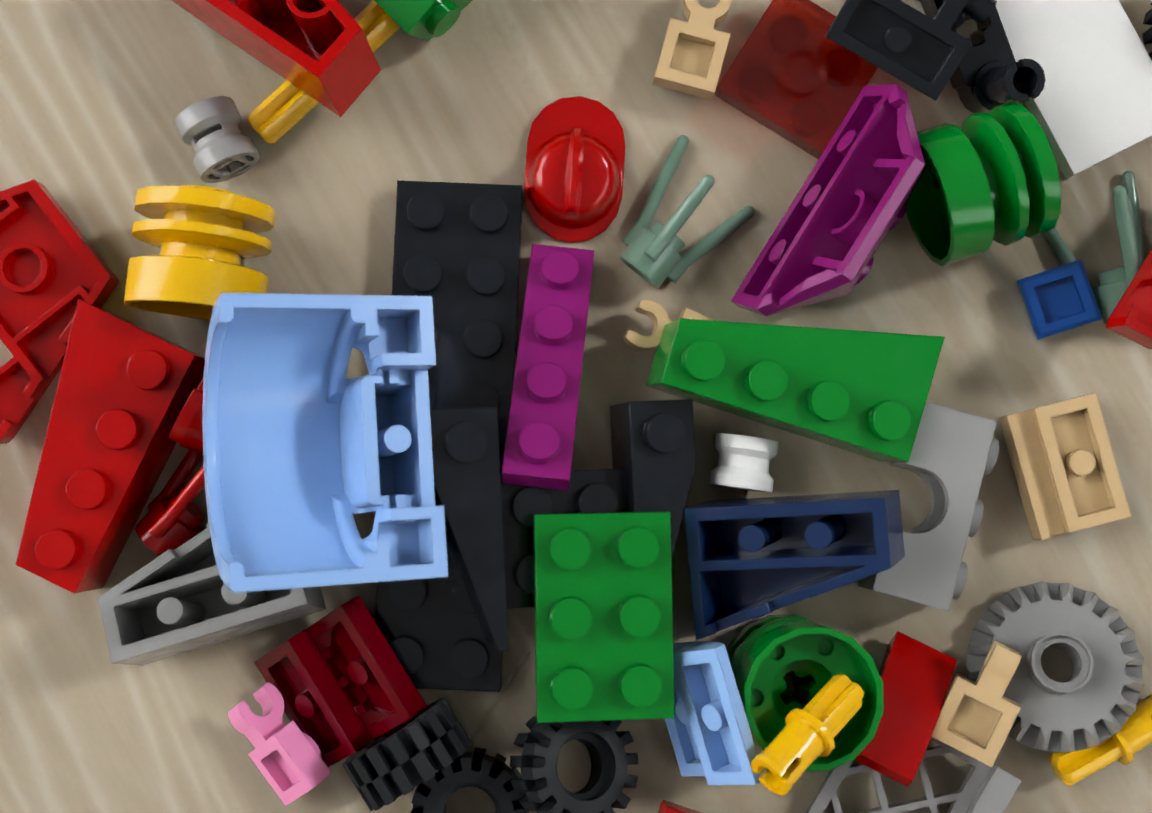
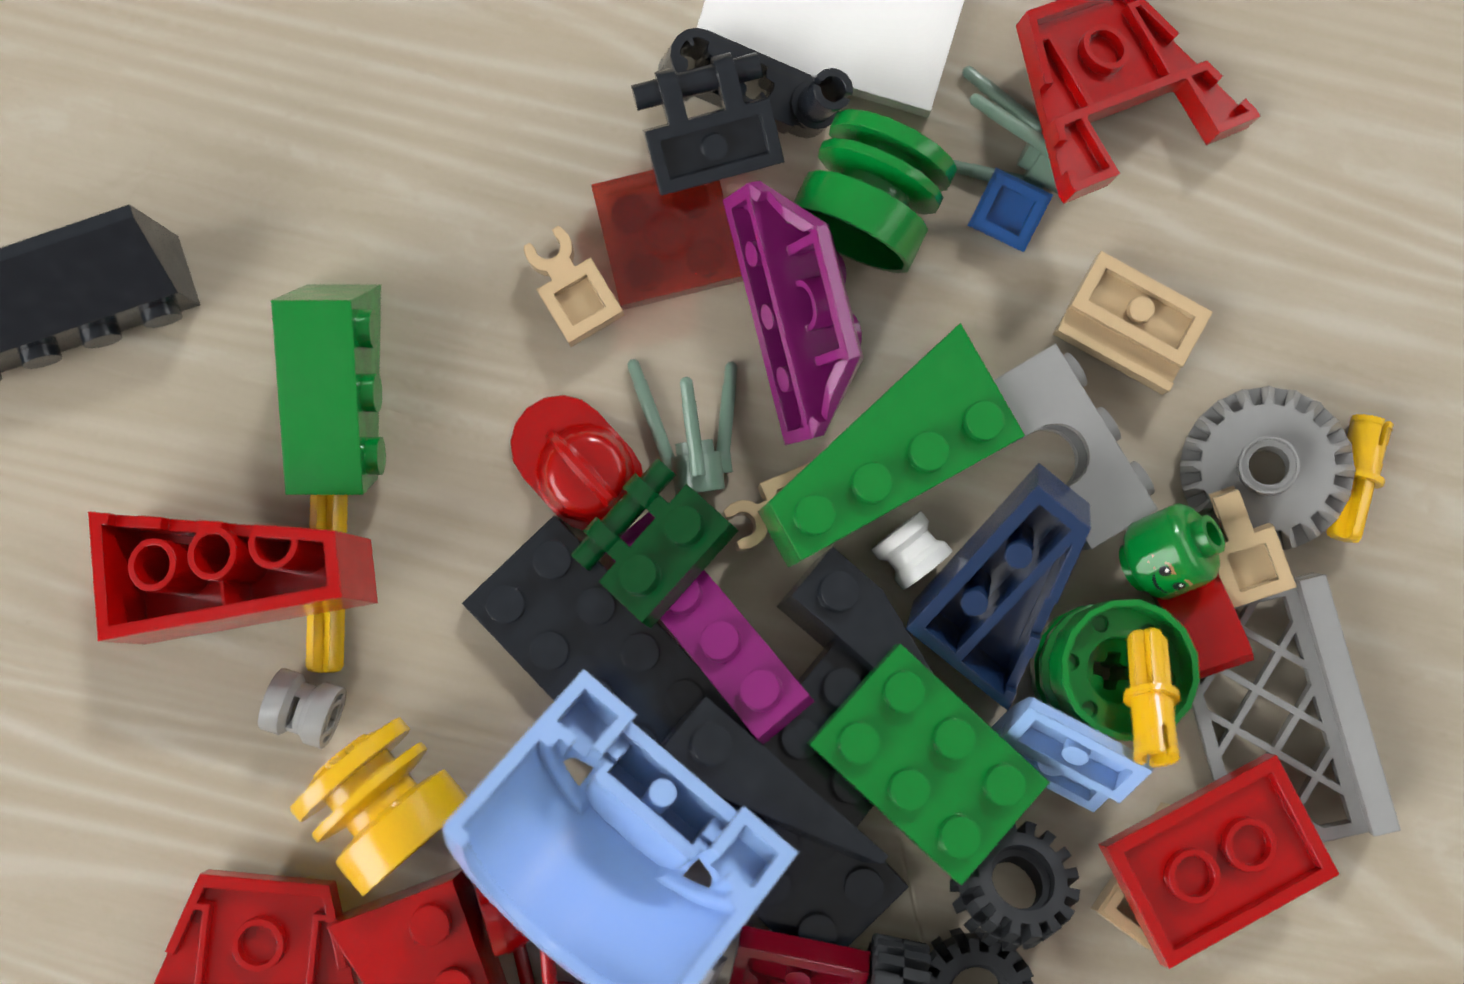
camera: 45 degrees left, 0 degrees up
(571, 286) = (665, 555): none -> dark green plate
(928, 649) = (1171, 551): none -> green head

